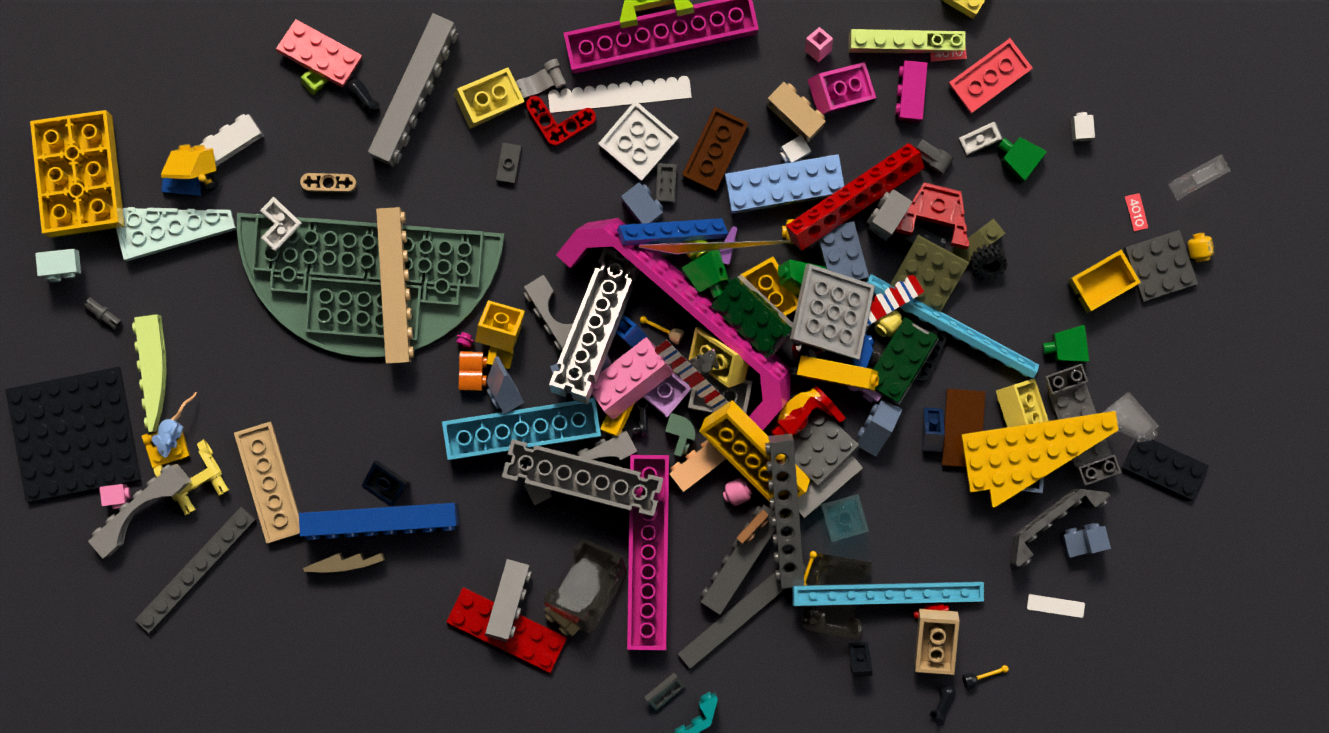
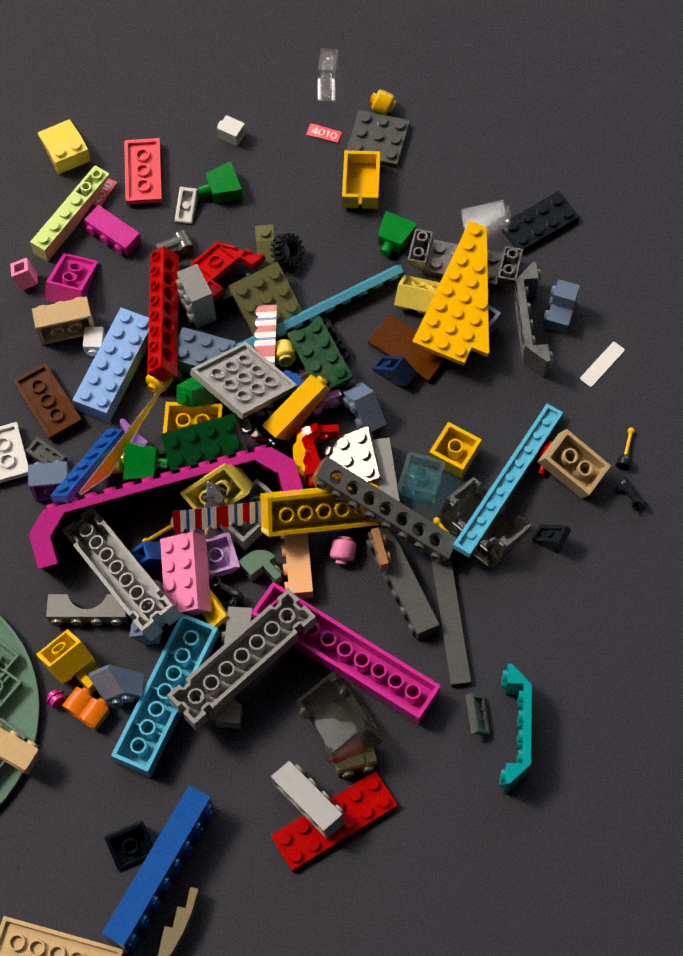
camera: 50 degrees left, 20 degrees down
(887, 531) = (456, 448): none -> yellow brick

